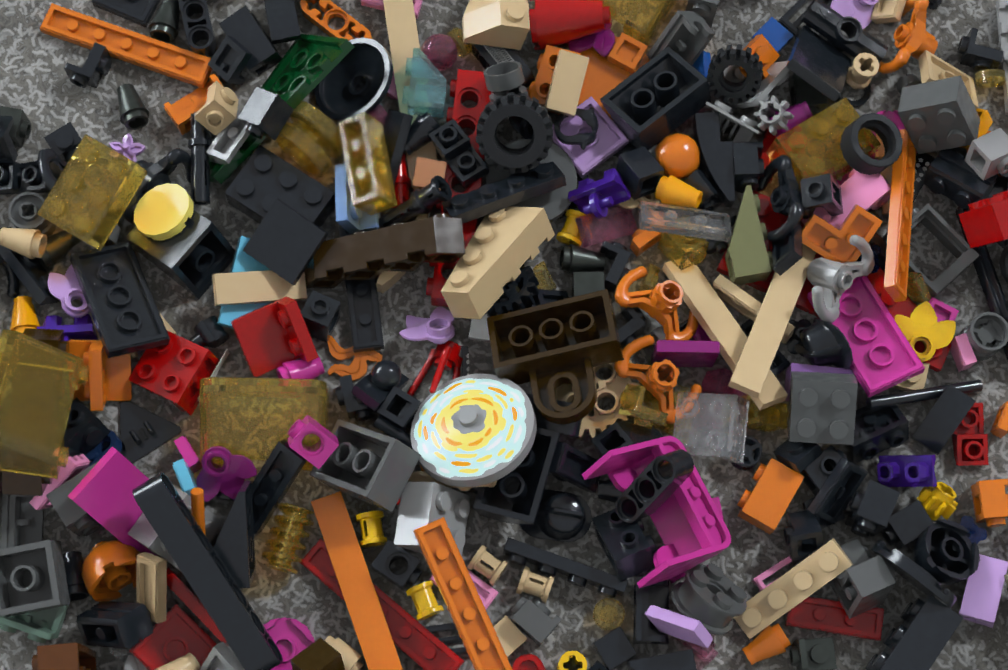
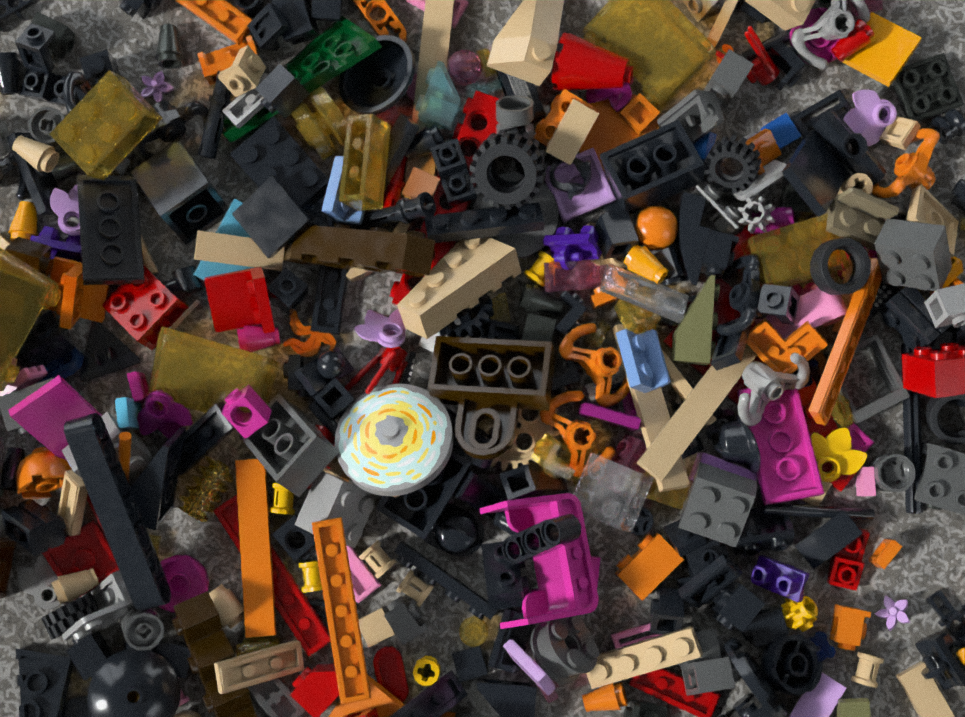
camera: 20 degrees right, 10 degrees up
(163, 211) = (168, 158): light yellow tile -> none
(704, 286) = (643, 360): none -> medium blue bracket
(874, 91) = (858, 216): none -> dark tan bracket

